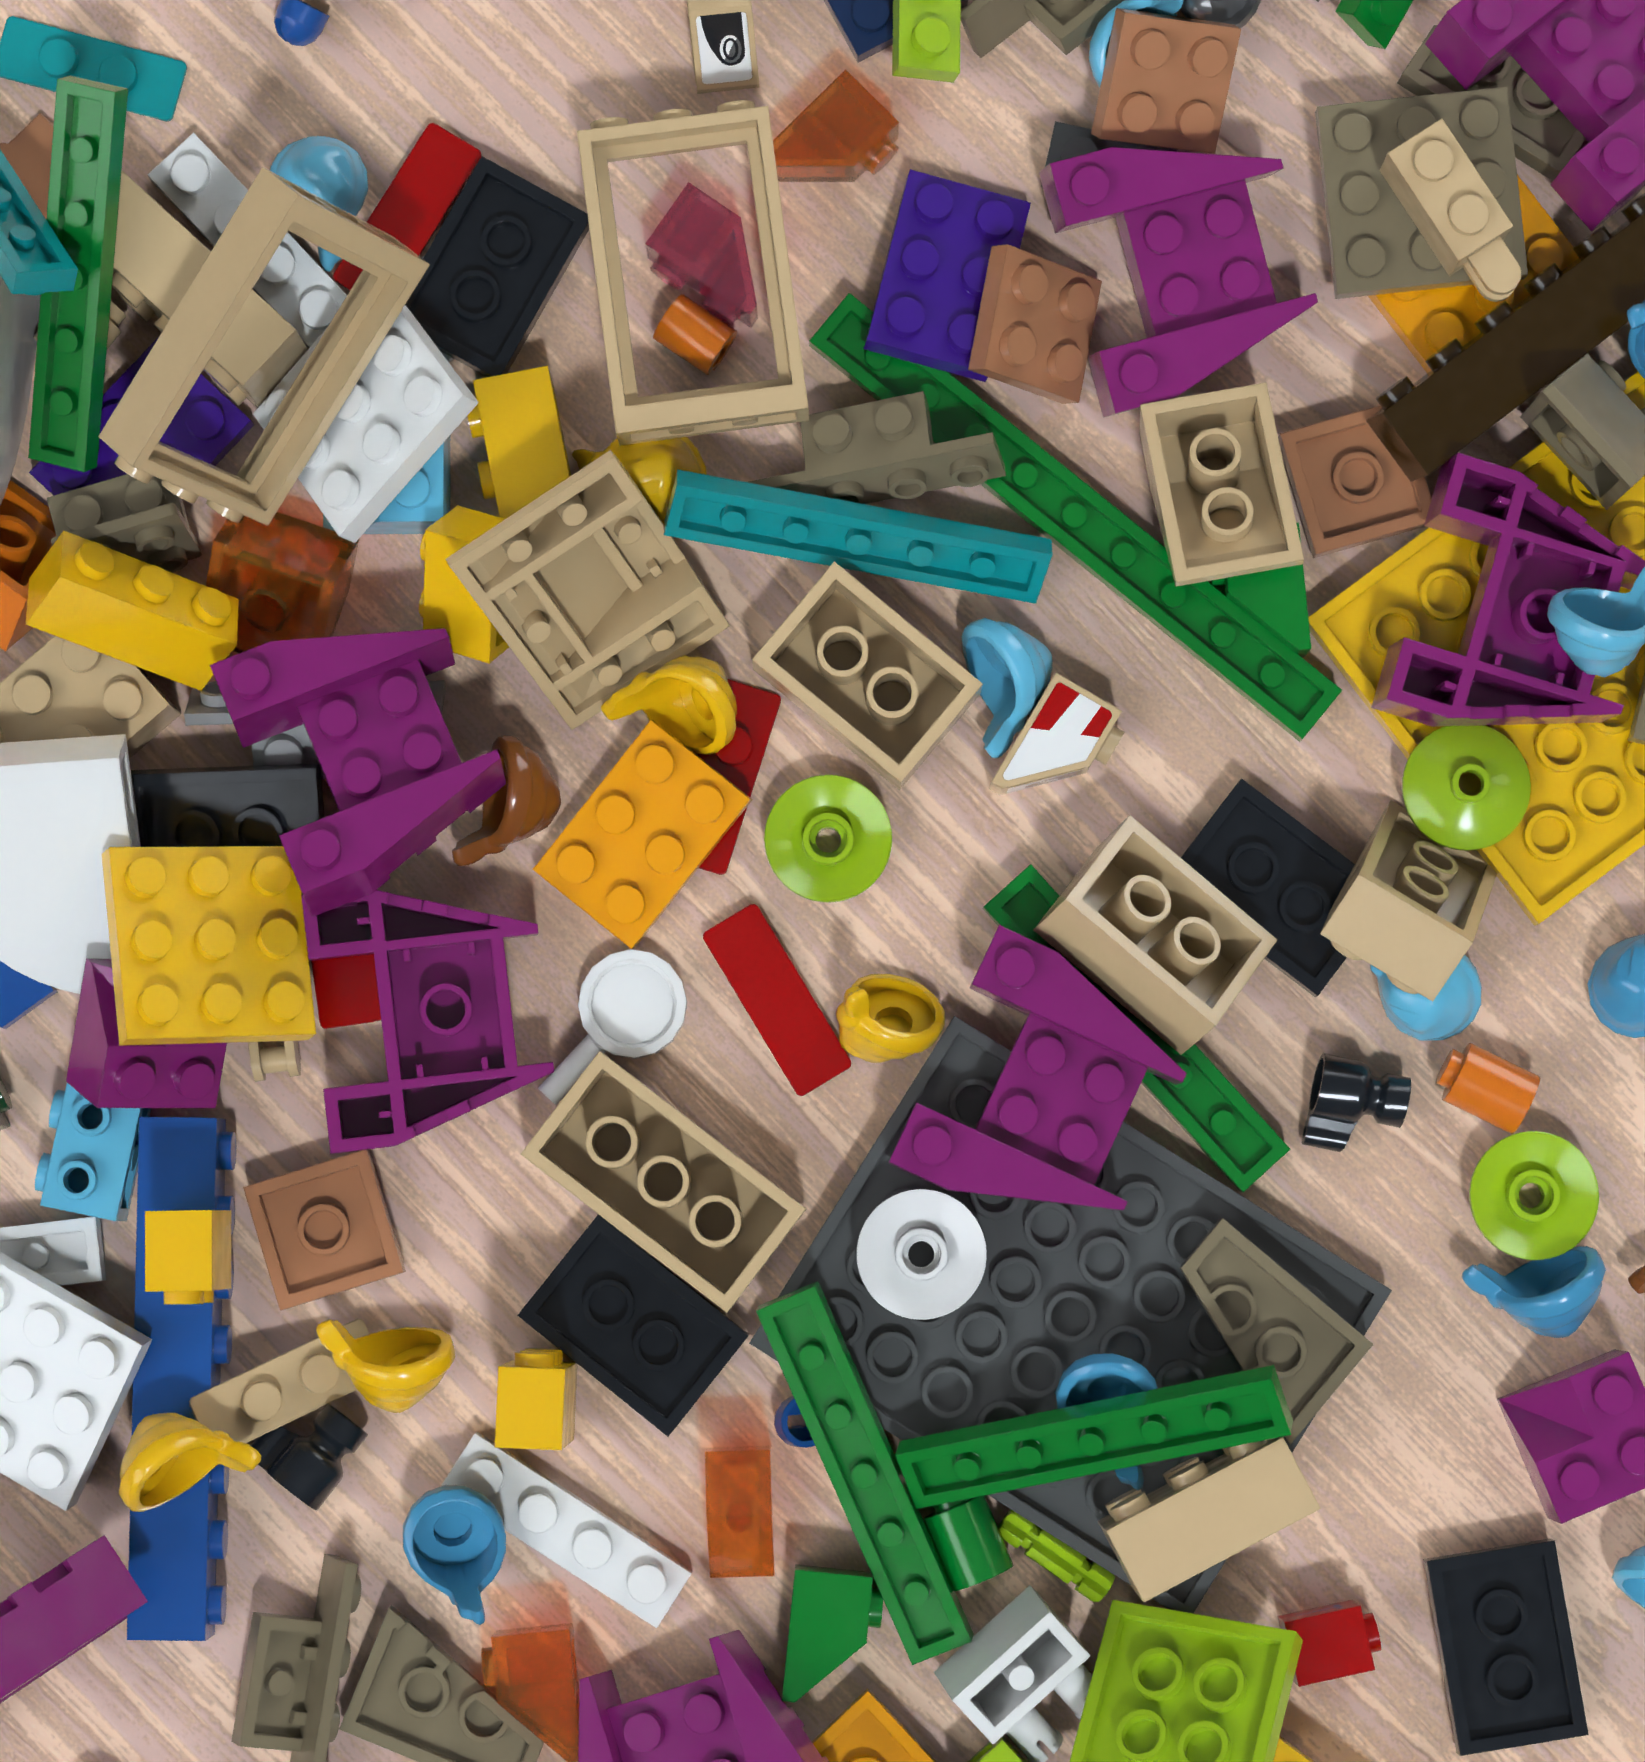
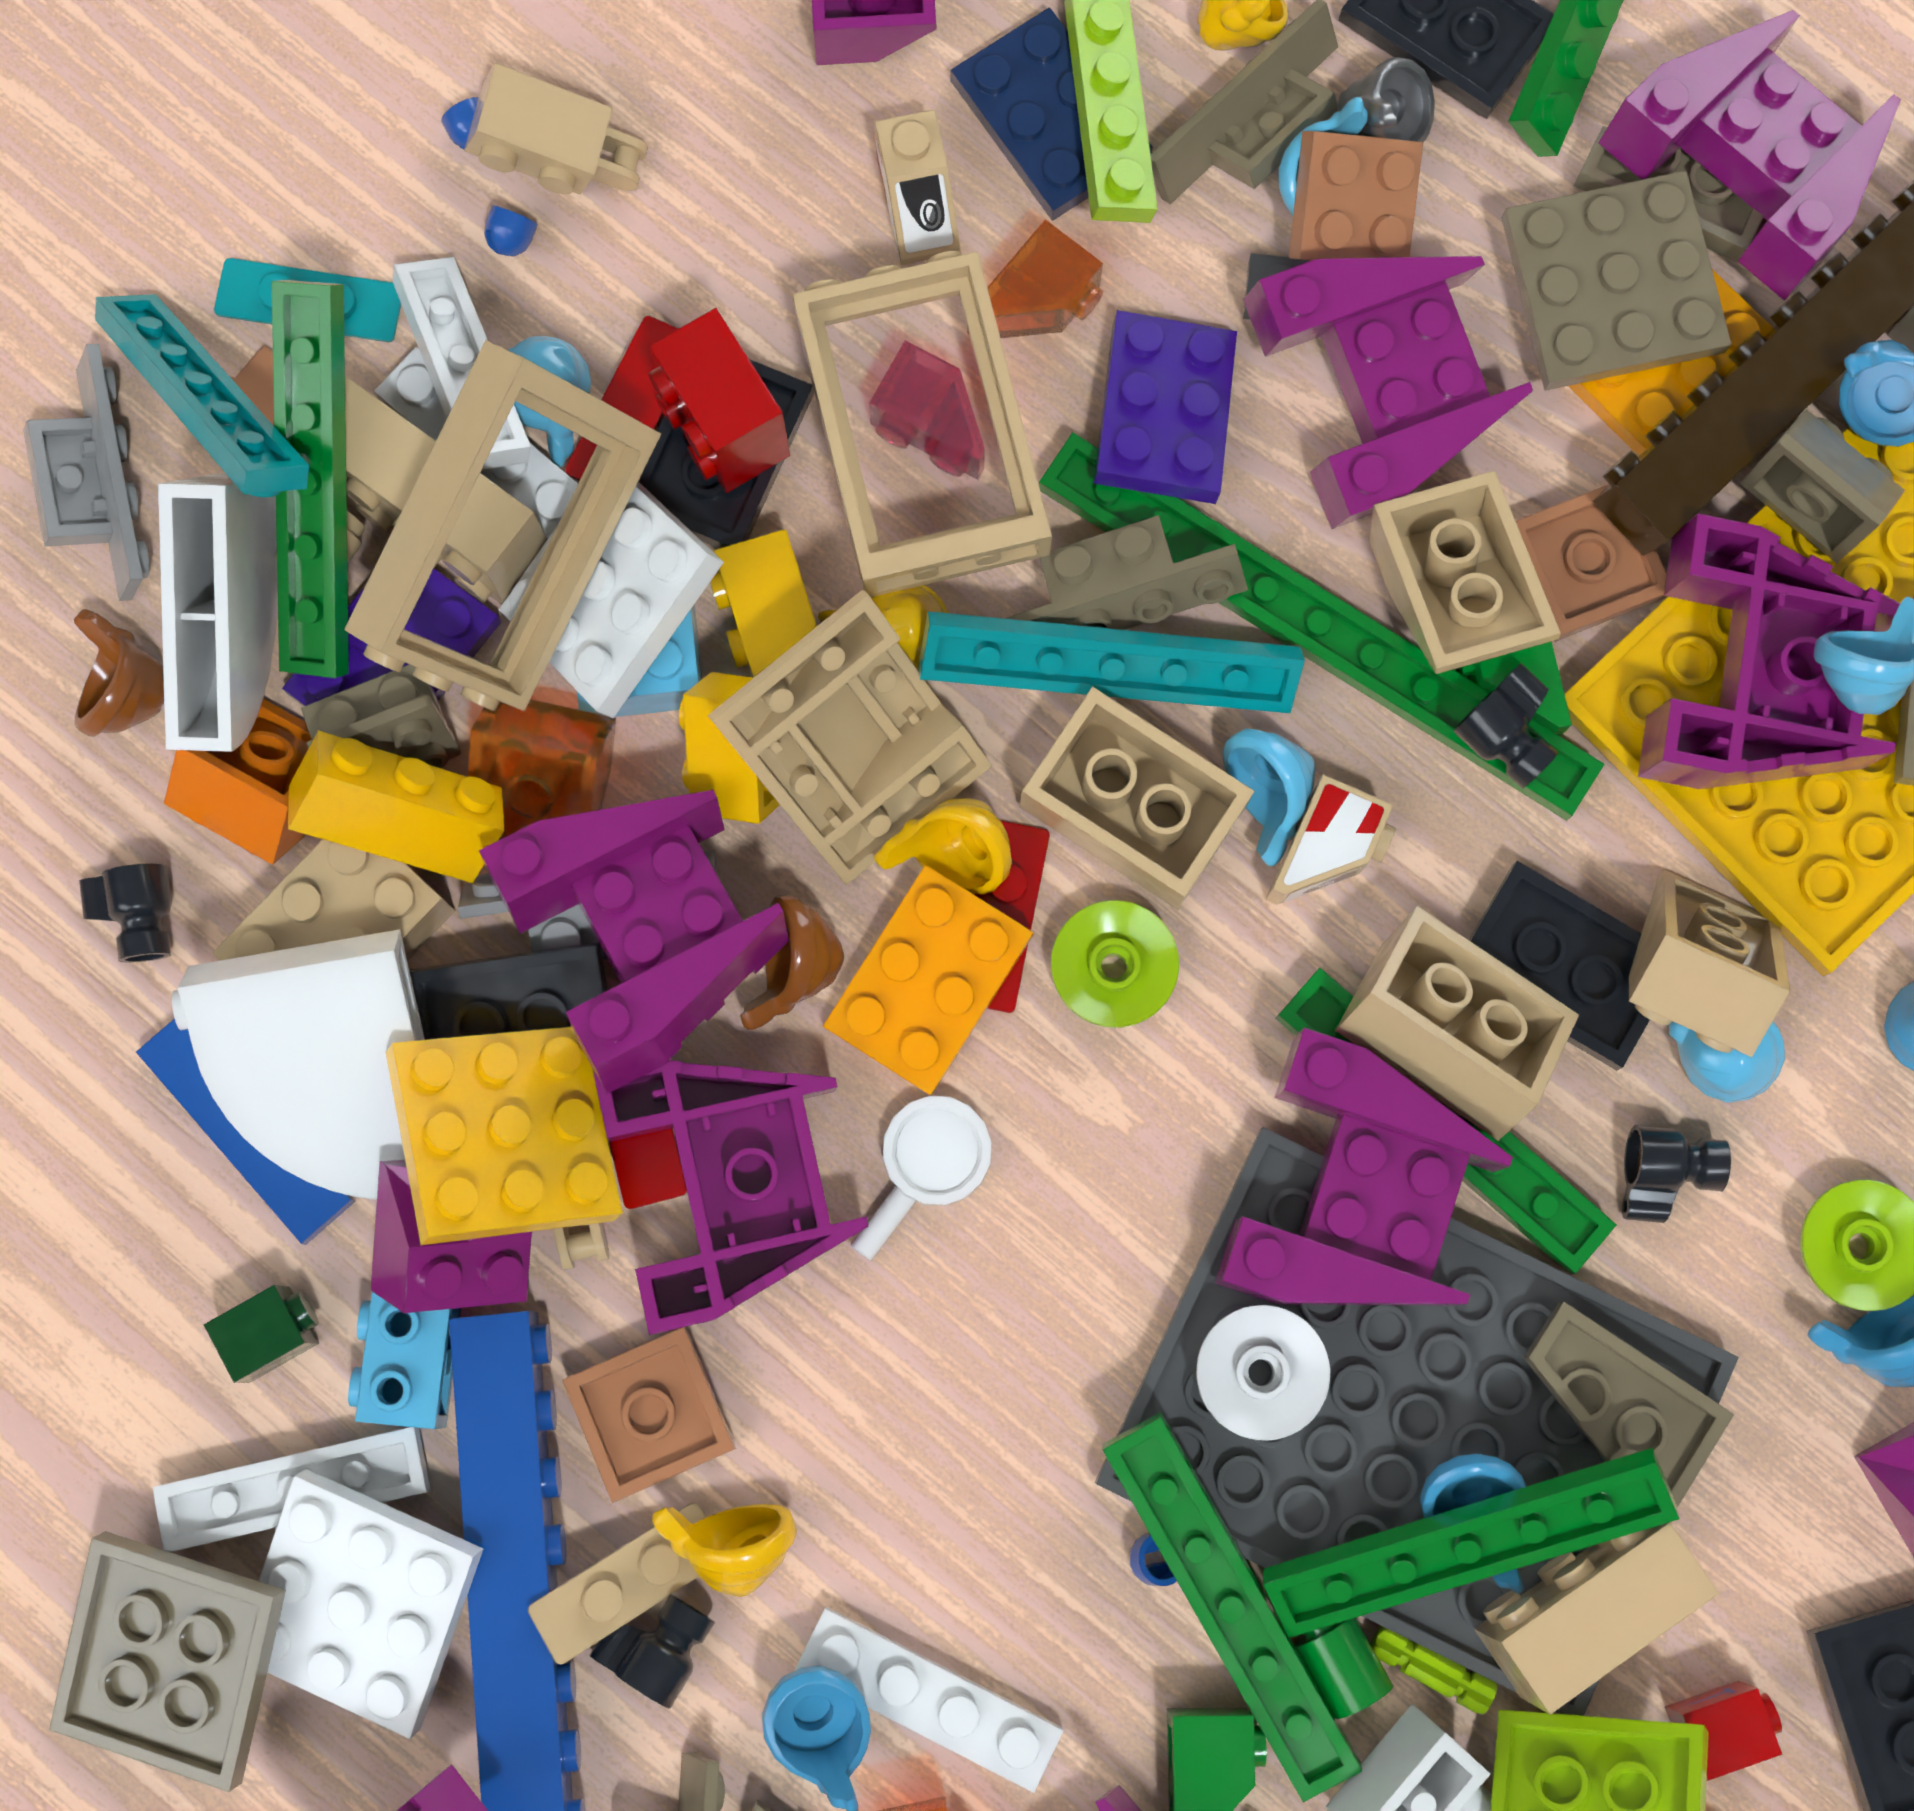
camera: 10 degrees left, 5 degrees down
(173, 1455) = (515, 1668): yellow hat -> none
(187, 1254) = (511, 1456): yellow brick -> none
(229, 131) = (450, 342): none -> white plate
(497, 238) = (718, 402): none -> red brick
(536, 1401) = (887, 1570): yellow brick -> none
(633, 1325) = (975, 1478): black plate -> none
(663, 1181) = (992, 1327): tan brick -> none
(694, 334) = (925, 488): orange piece -> none
(739, 1511) = (1106, 1659): clear orange slope -> none
(777, 1000) = (1081, 1131): red piece -> none
(888, 1018) = (1197, 1137): yellow hat -> none
(1035, 324) = (1257, 442): nougat plate -> none
(1239, 642) = (1500, 727): none -> black piece
(1440, 806) = (1720, 866): lime dish -> none
(1453, 209) = (1658, 284): tan brick -> none
(1488, 1086) = (1804, 1141): orange brick -> none

